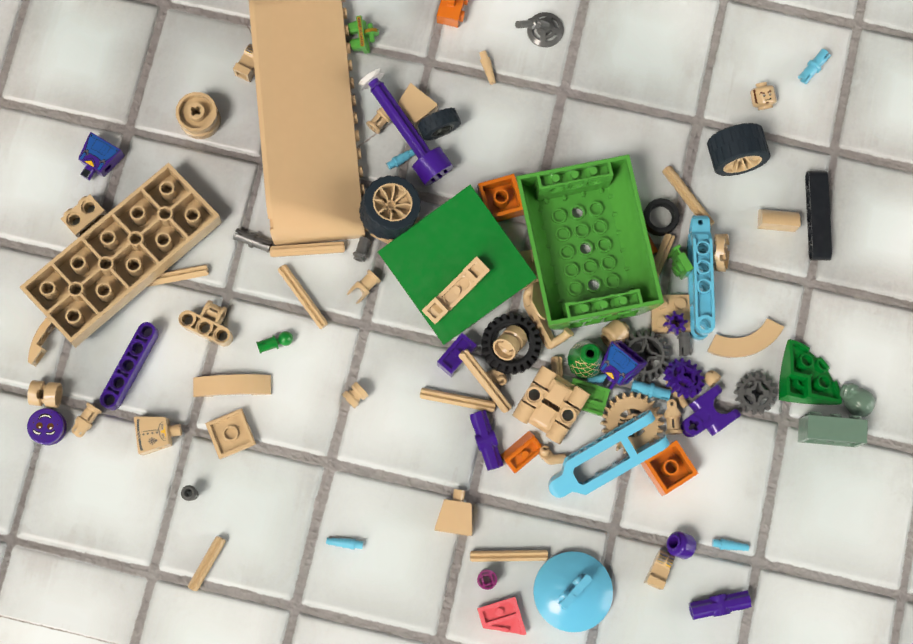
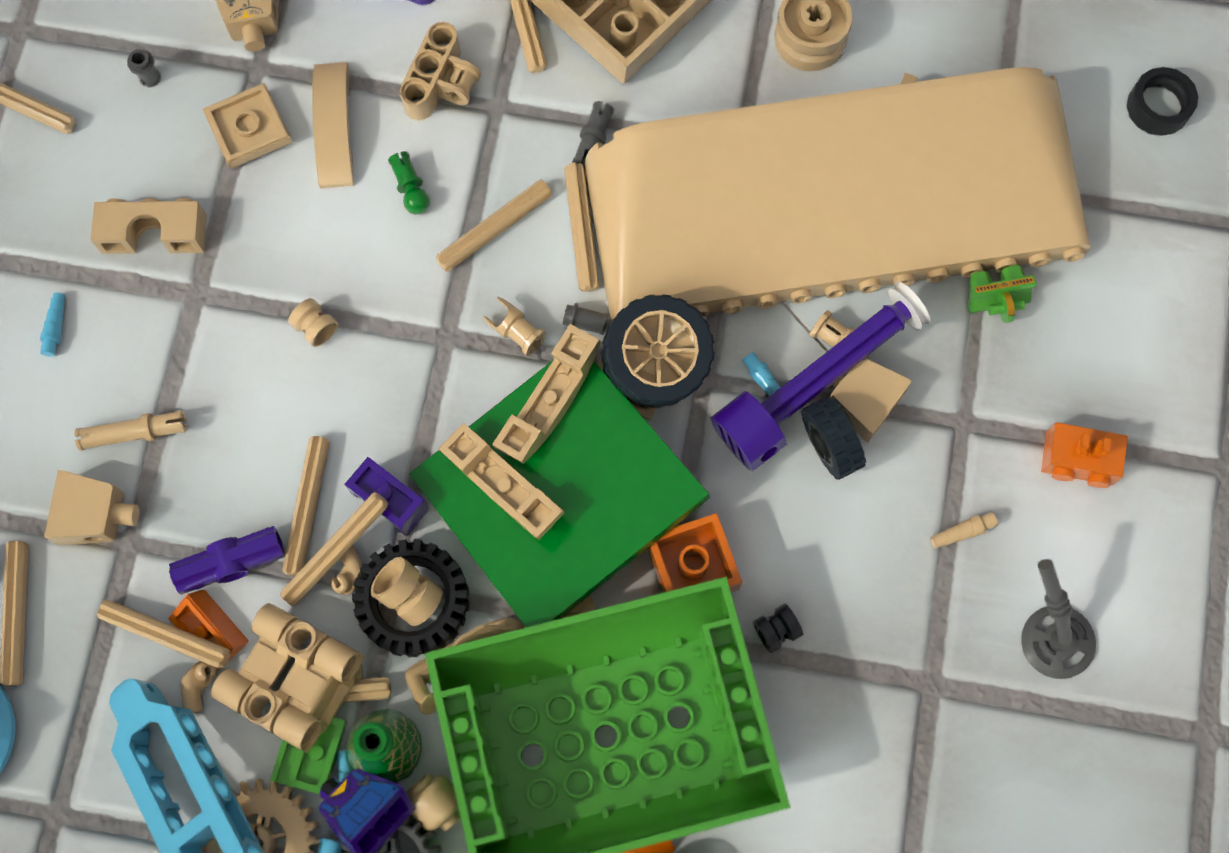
camera: 90 degrees right, 5 degrees down
(289, 470) = (120, 223): none -> tan arch
(409, 264) = (551, 397): none -> tan slope
(410, 494) = (146, 428): none -> tan pin
(524, 472) = (164, 634): none -> tan axle
(534, 161) = (778, 628): none -> black wheel

